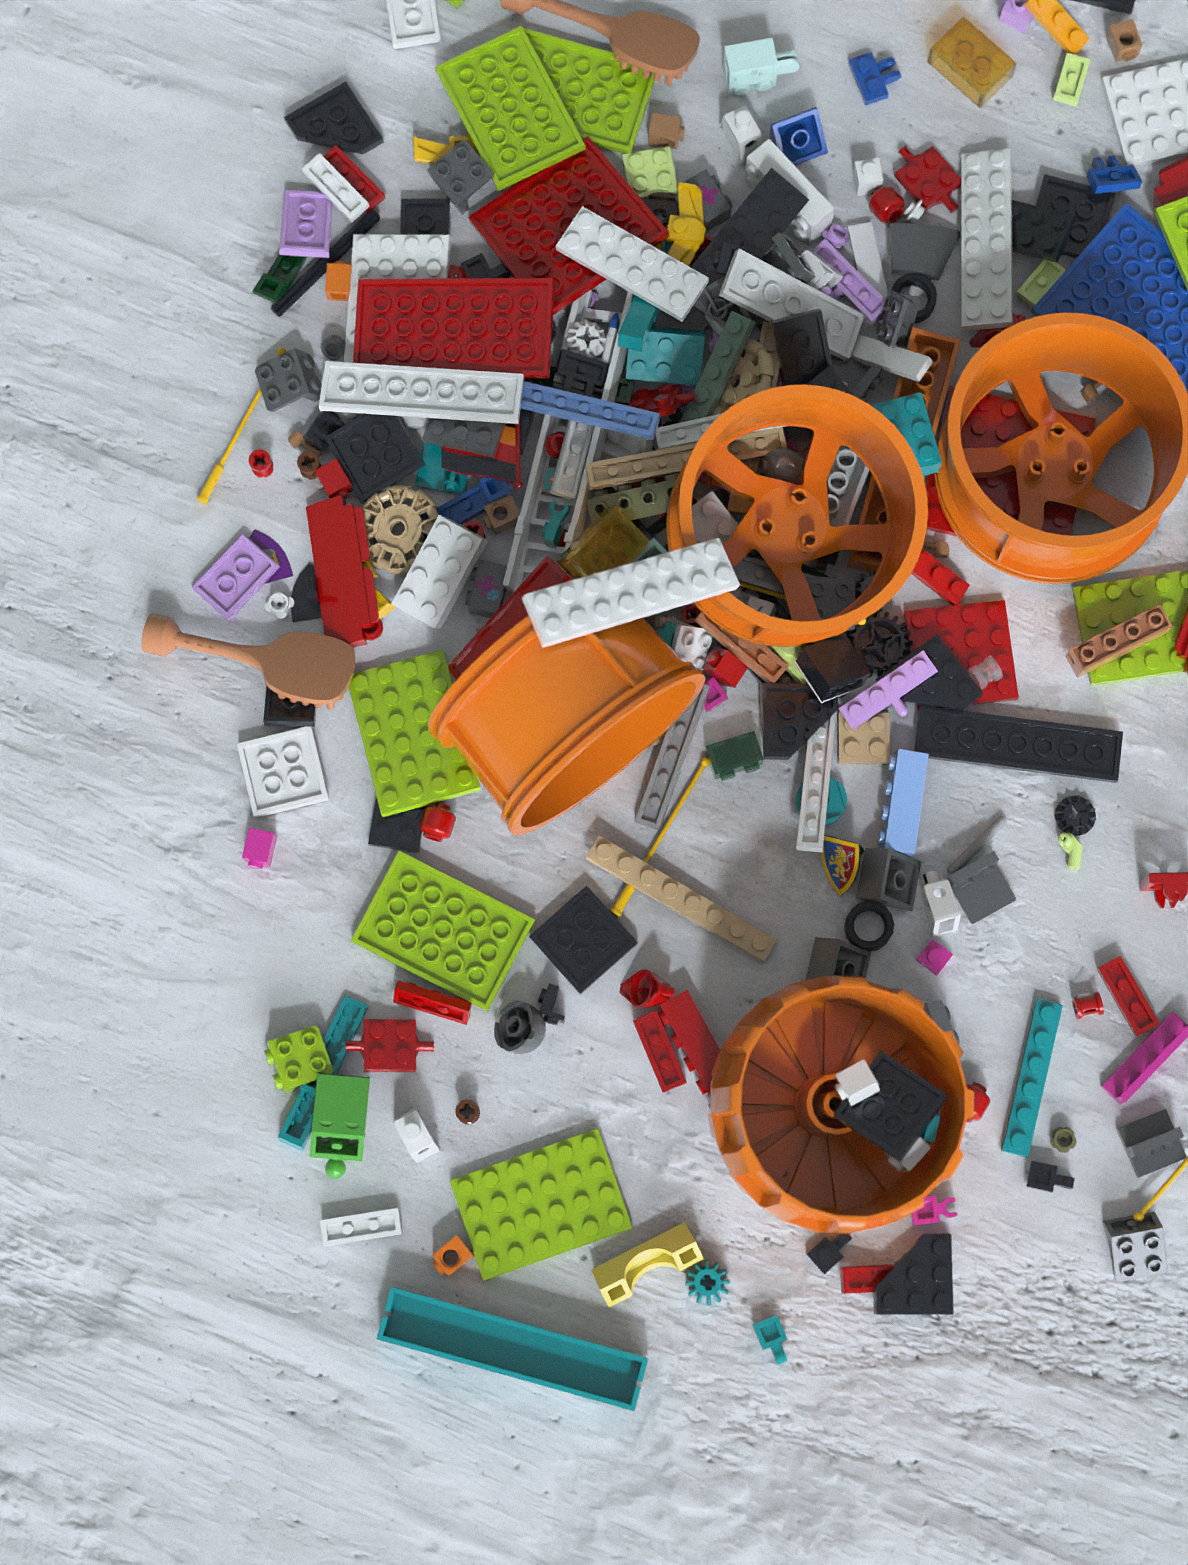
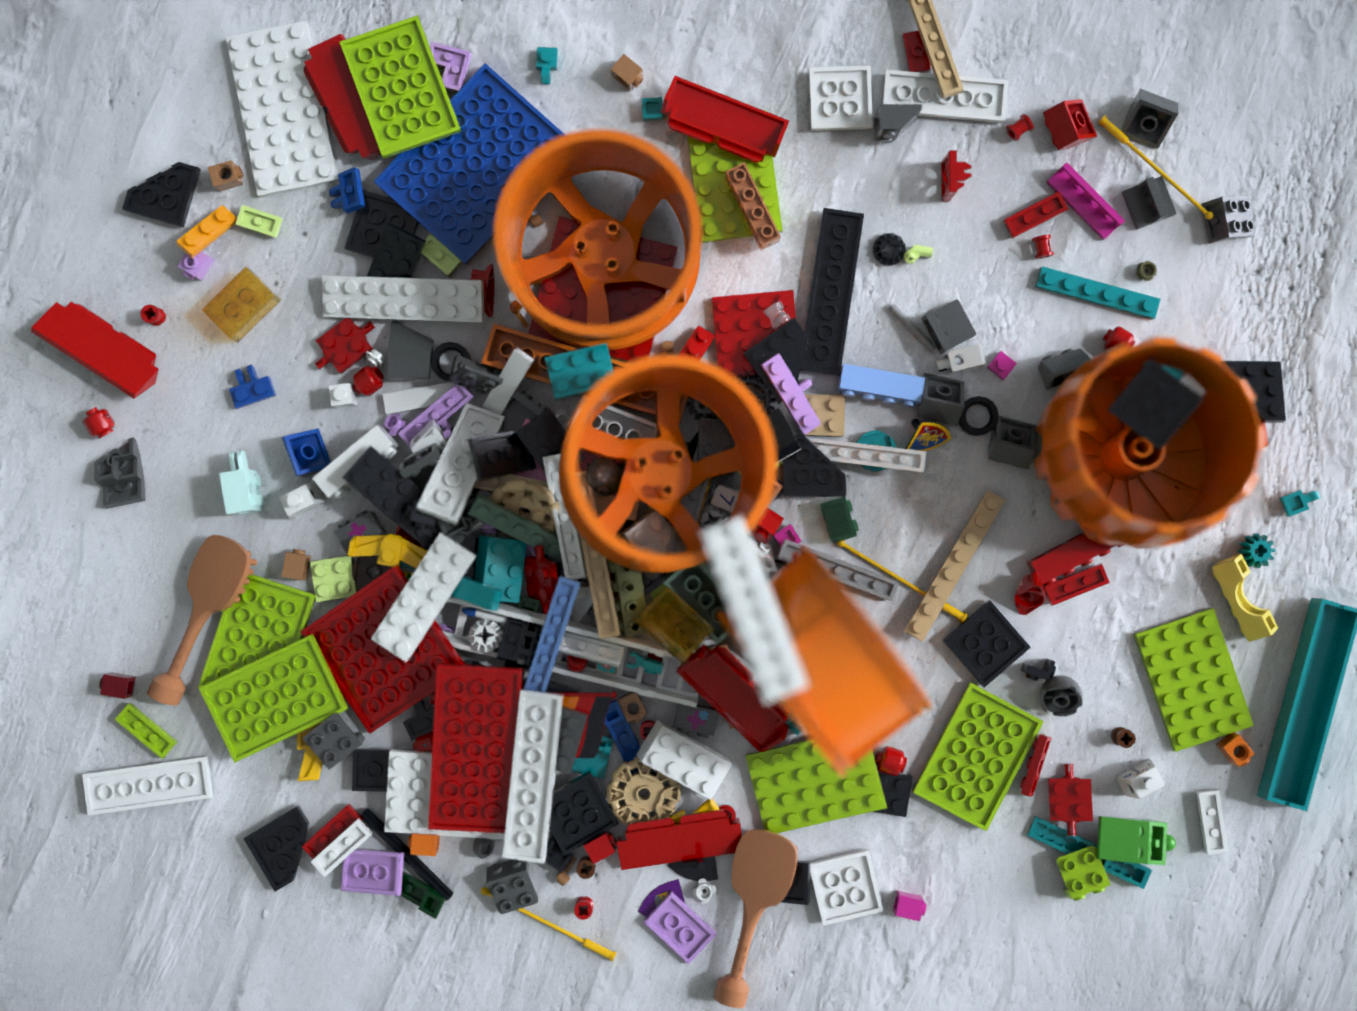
camera: 90 degrees left, 10 degrees up
(856, 1083) = (1139, 430): white brick -> none
(1044, 1177) = (1176, 286): black plate -> none

